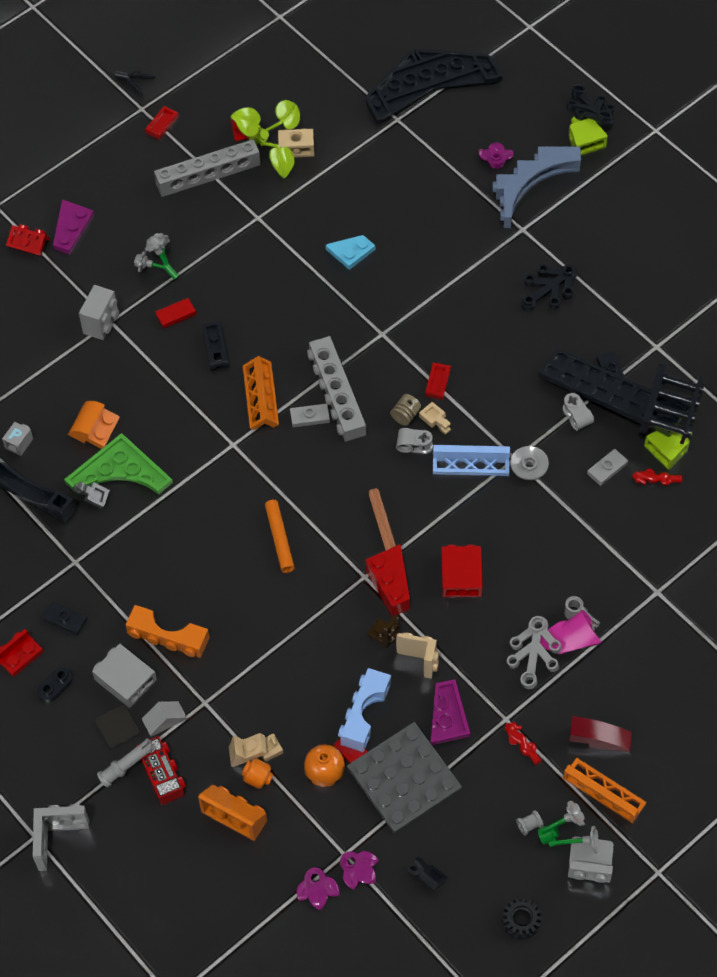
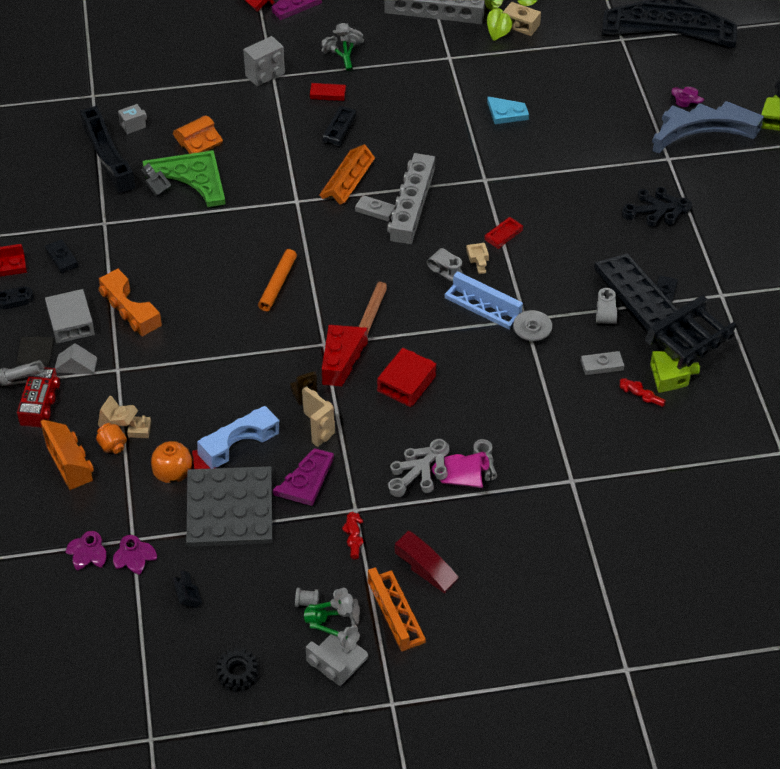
camera: 30 degrees right, 10 degrees down
(403, 411) = (457, 237): dark tan piece -> none

